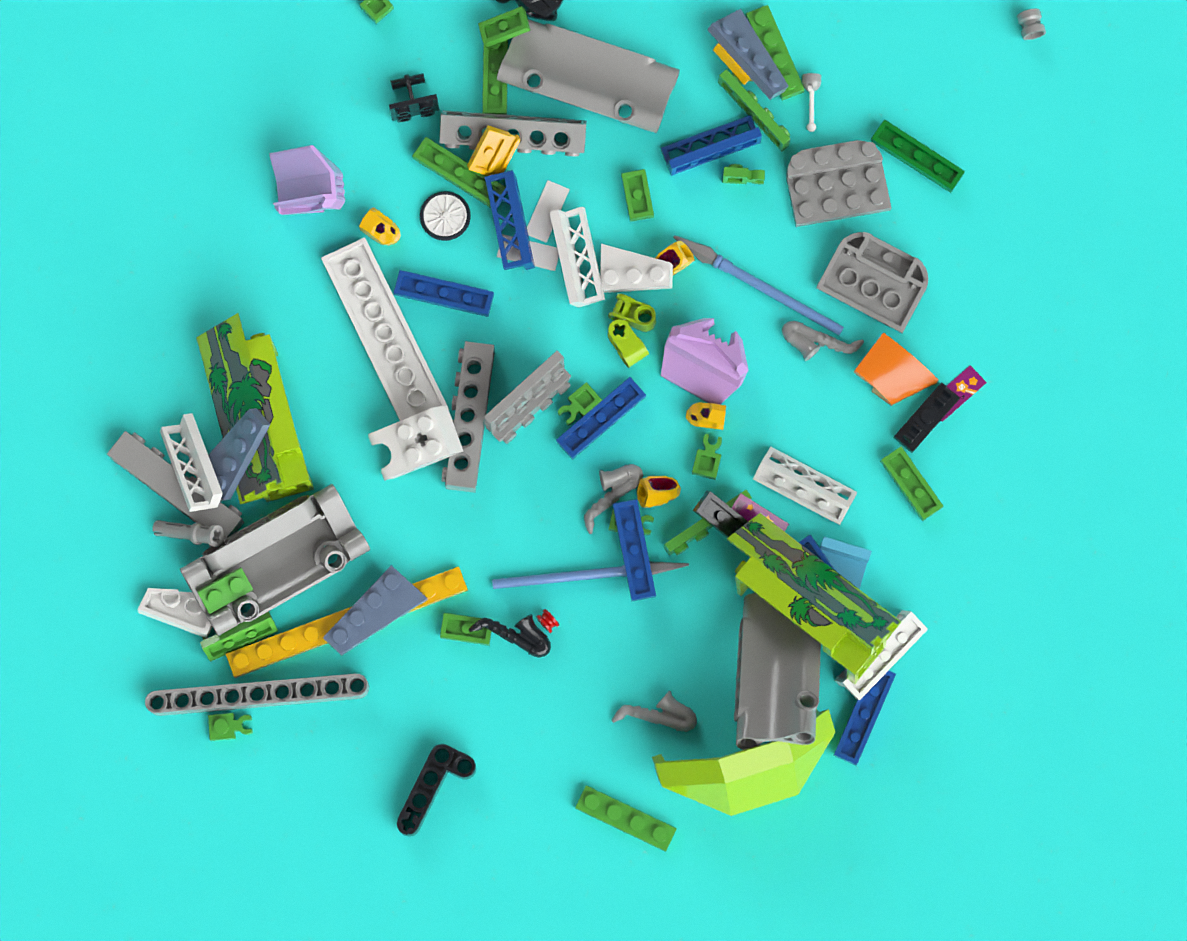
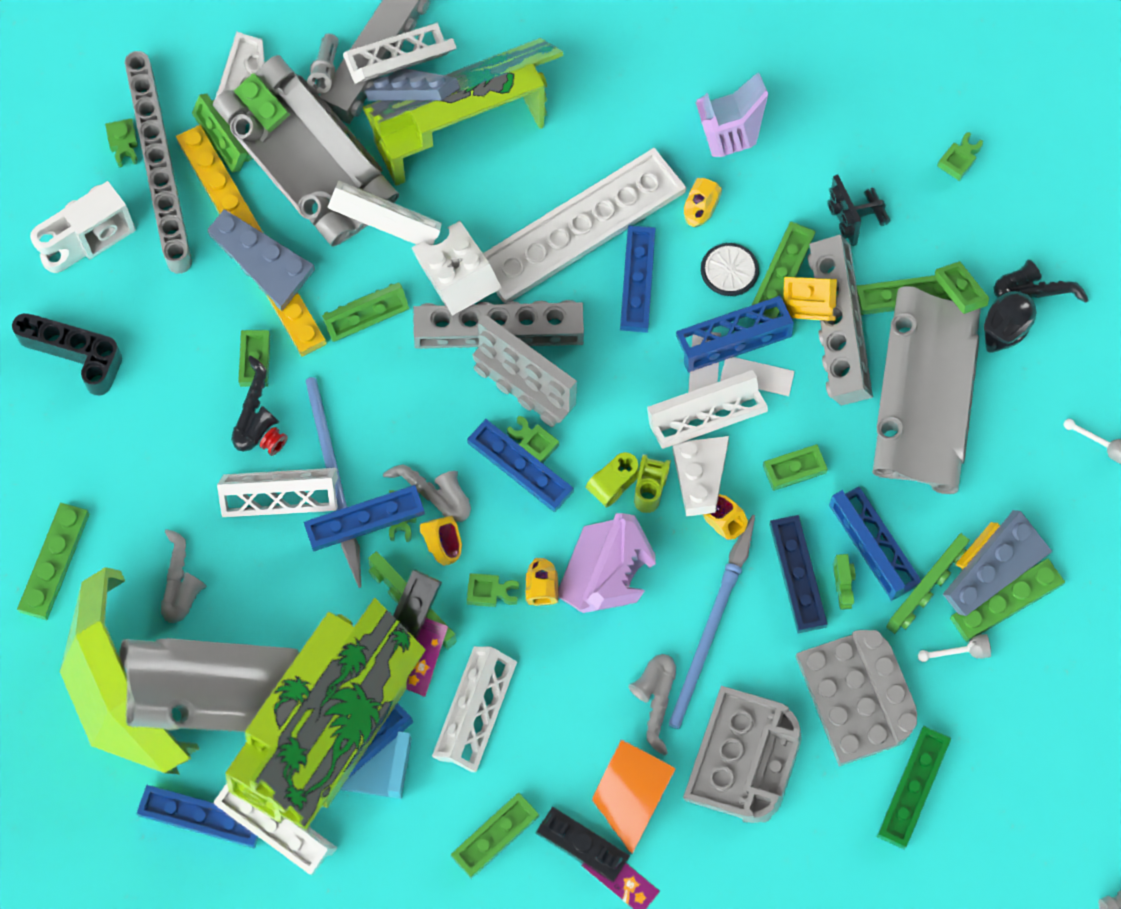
camera: 80 degrees right, 10 degrees down
(319, 762) = (83, 228): none -> white brick
(353, 497) = (384, 214): none -> white fence
(438, 528) = (365, 311): none -> bright green plate
(590, 620) = (281, 482): none -> white fence
(730, 210) = (798, 574): none -> dark blue plate

